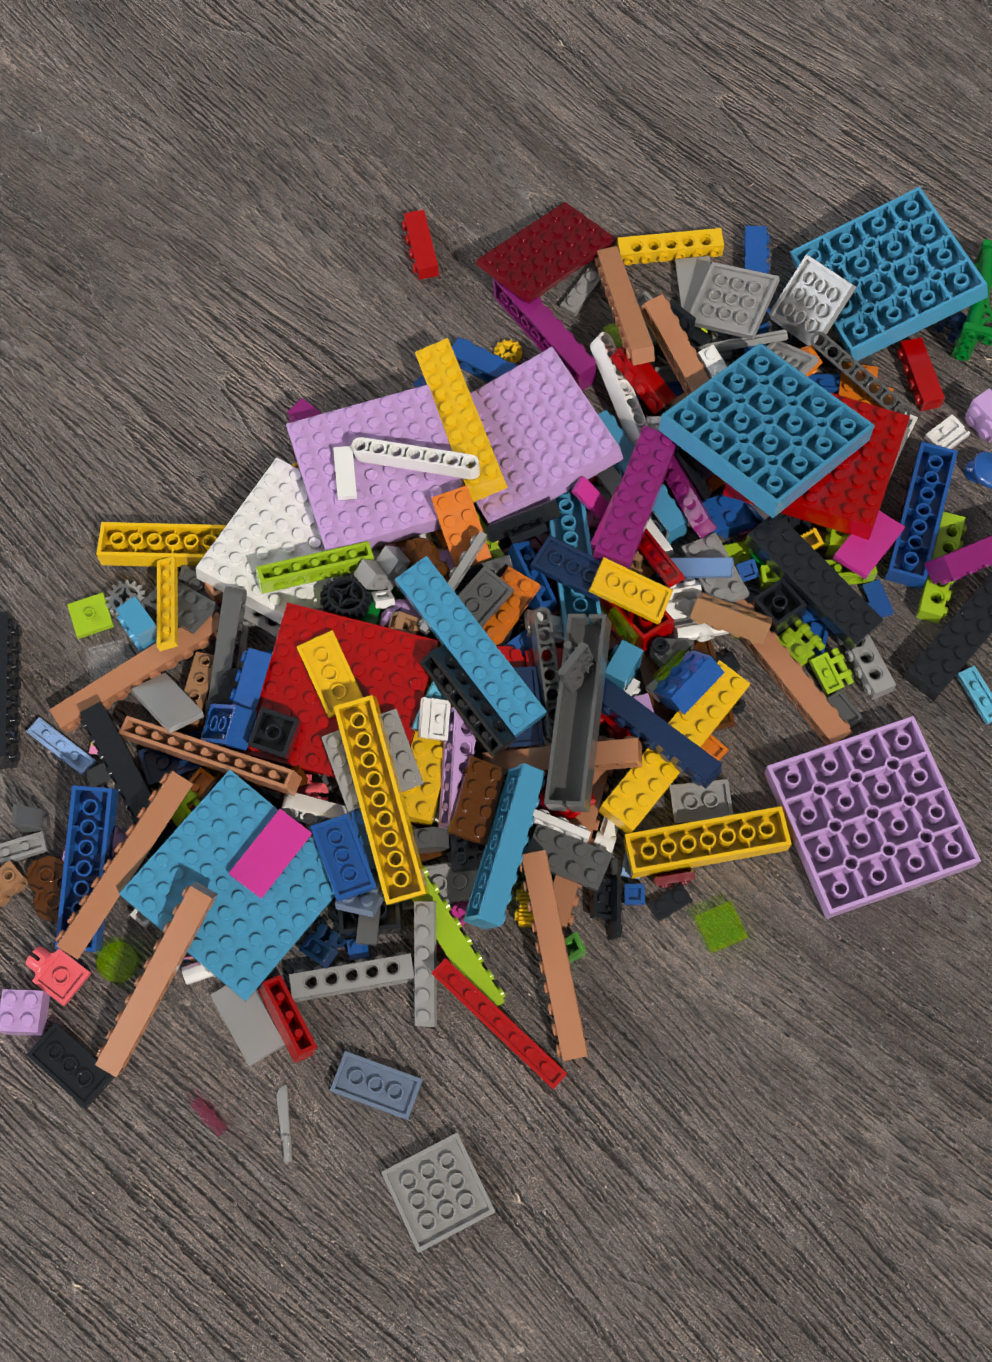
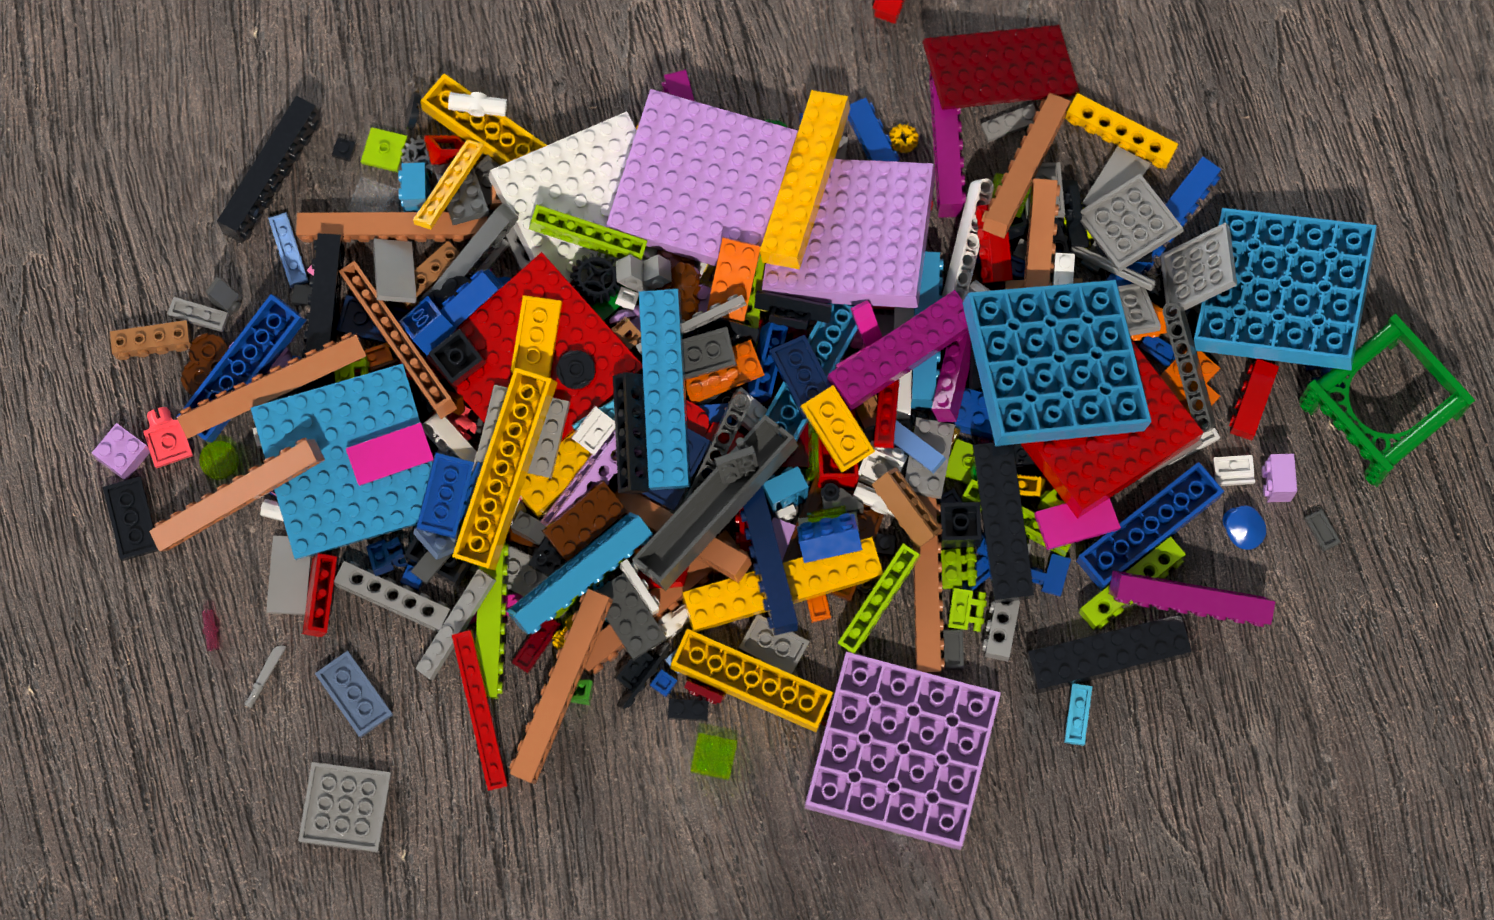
camera: 30 degrees right, 5 degrees up
(55, 636) = (343, 149): none -> black plate
(94, 569) = (412, 111): none -> black tile
(143, 587) = (438, 155): none -> red tile
(147, 527) = (477, 104): none -> white piece
(345, 473) = (668, 167): white tile -> none
(383, 679) = (576, 369): none -> black tile
(422, 463) = (736, 202): white beam -> none
(504, 940) = (535, 646): none -> dark red tile
(747, 570) = (960, 475): blue plate -> none
(761, 706) = (879, 599): none -> lime brick

